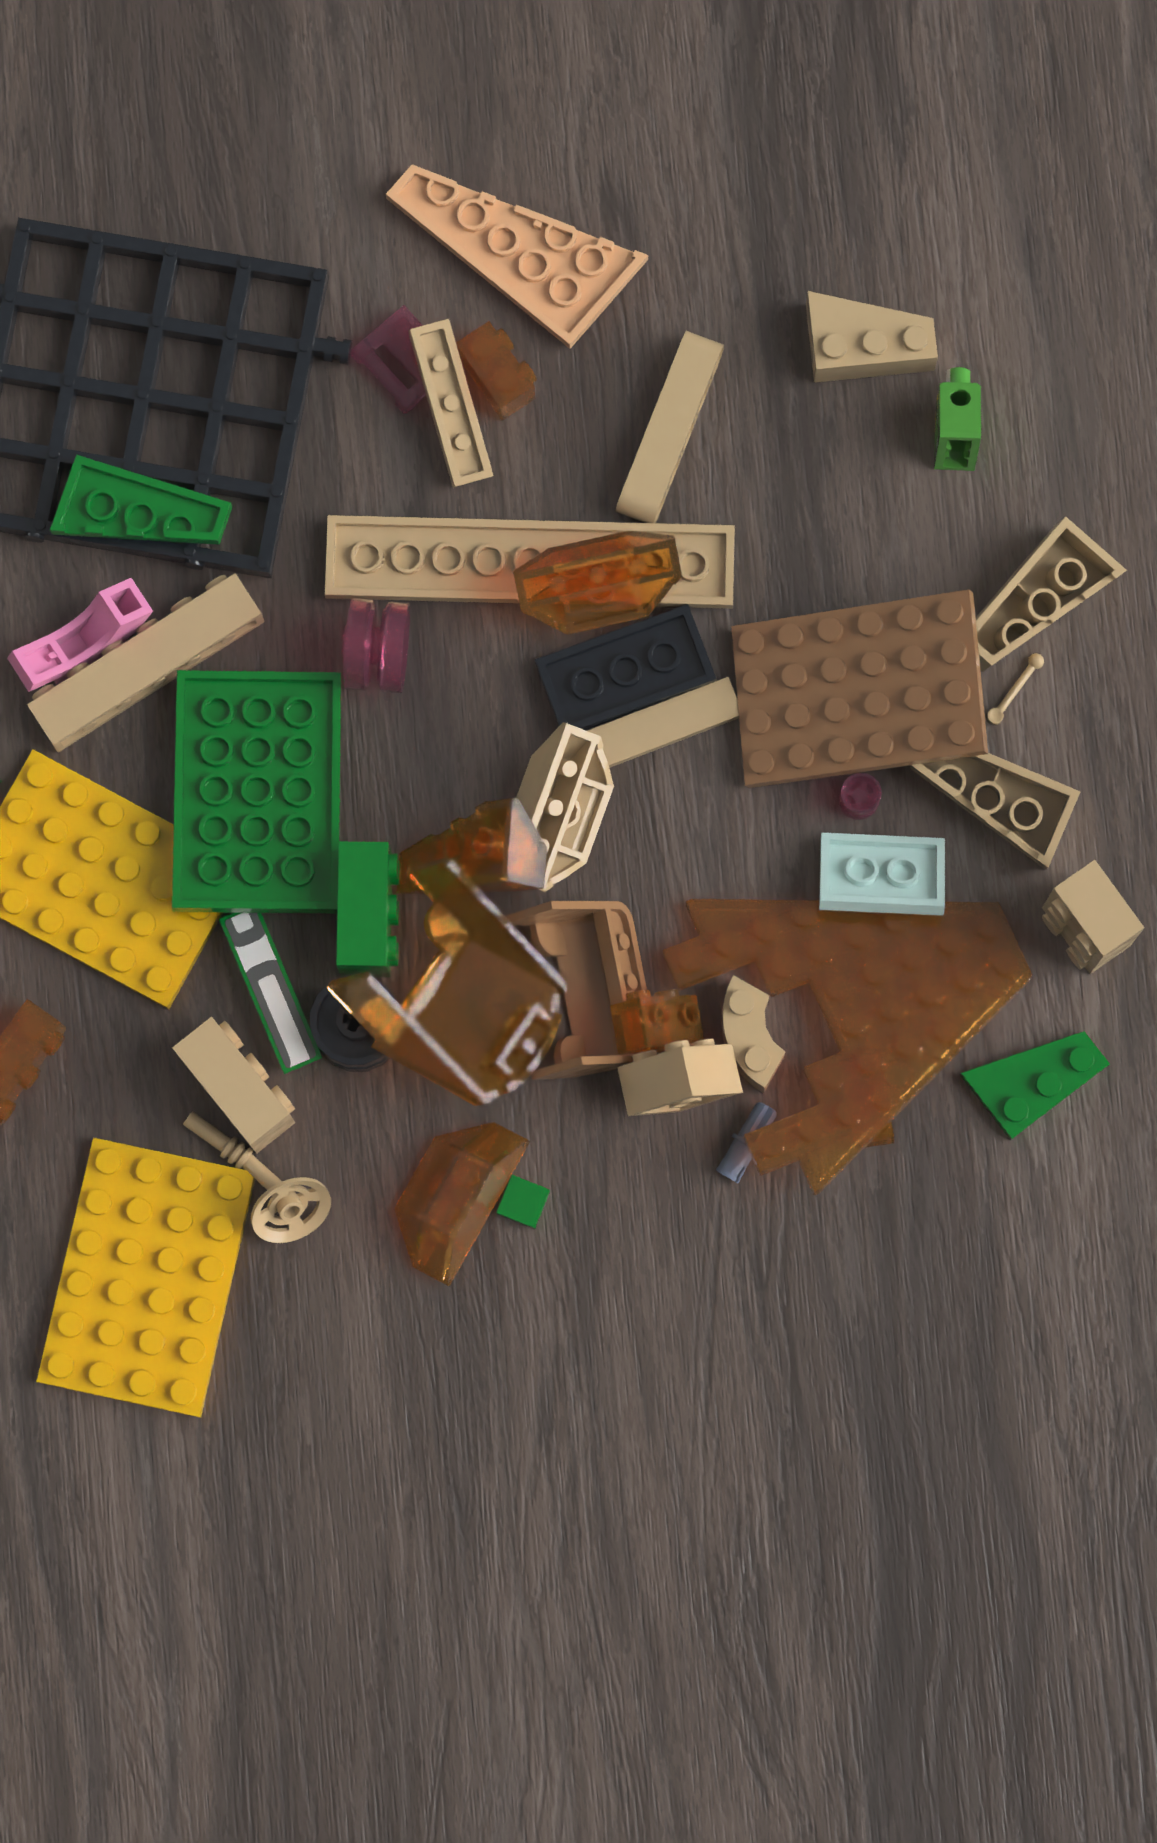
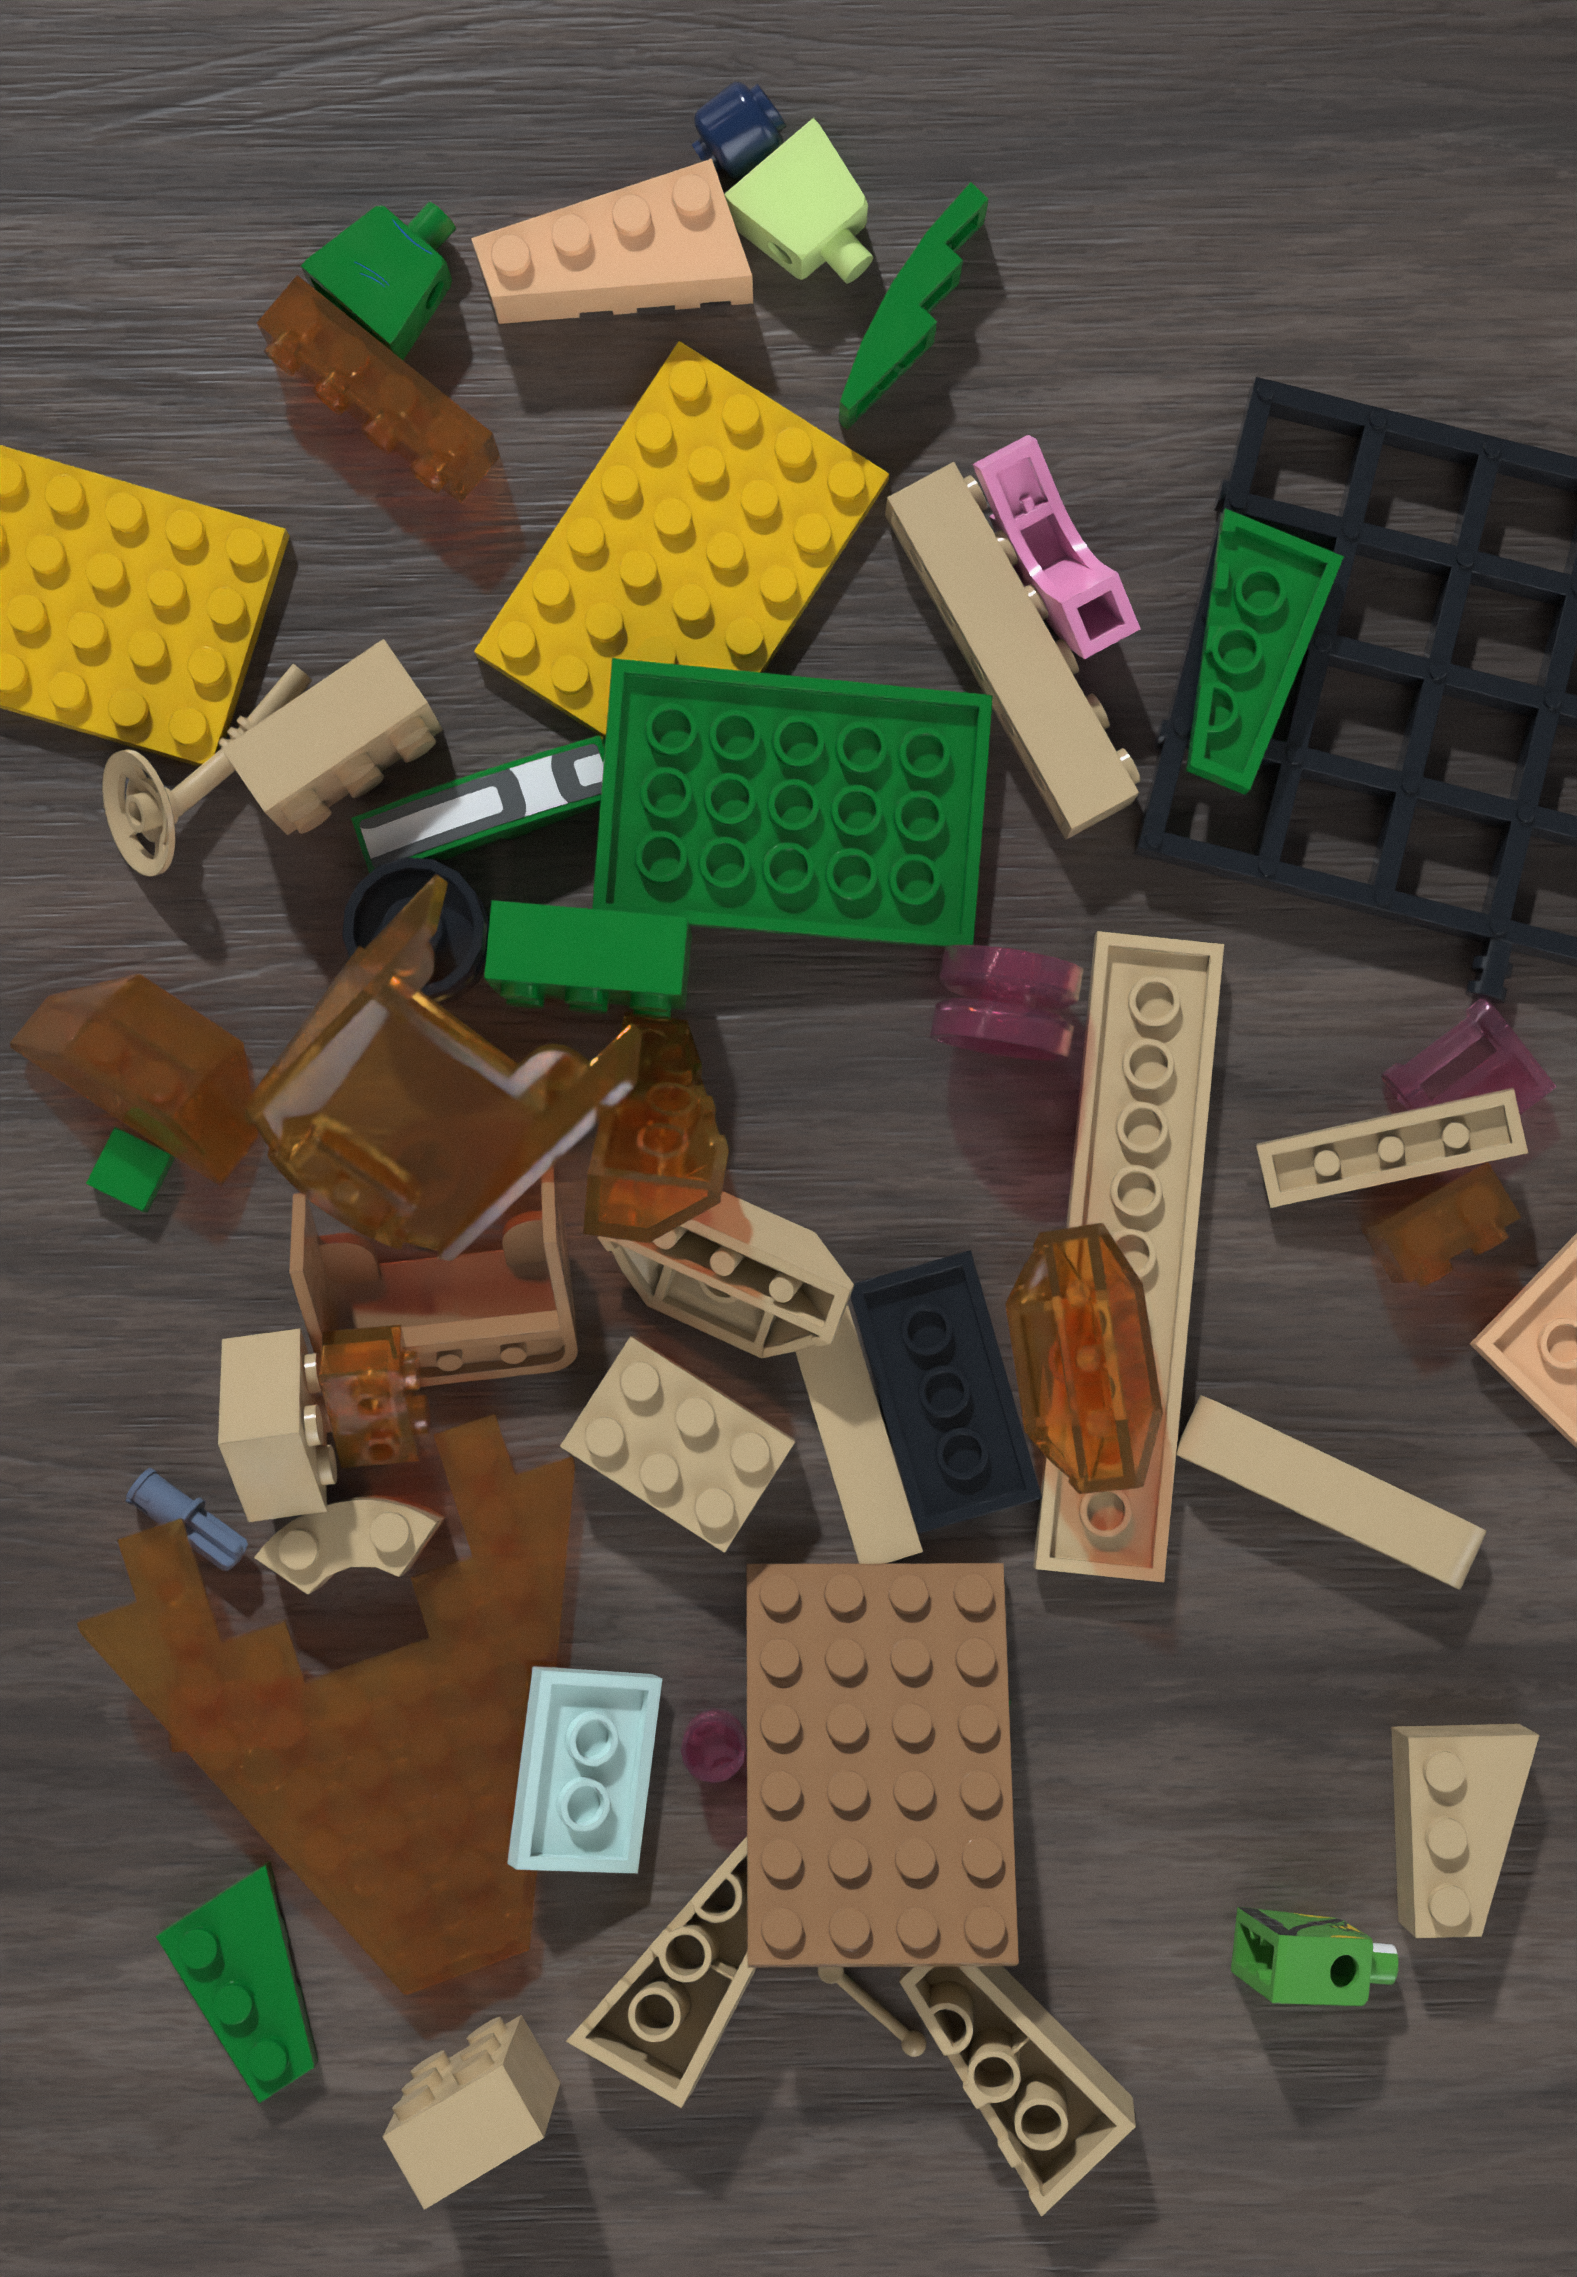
camera: 90 degrees right, 5 degrees up
(671, 832) = (678, 1443): none -> tan brick

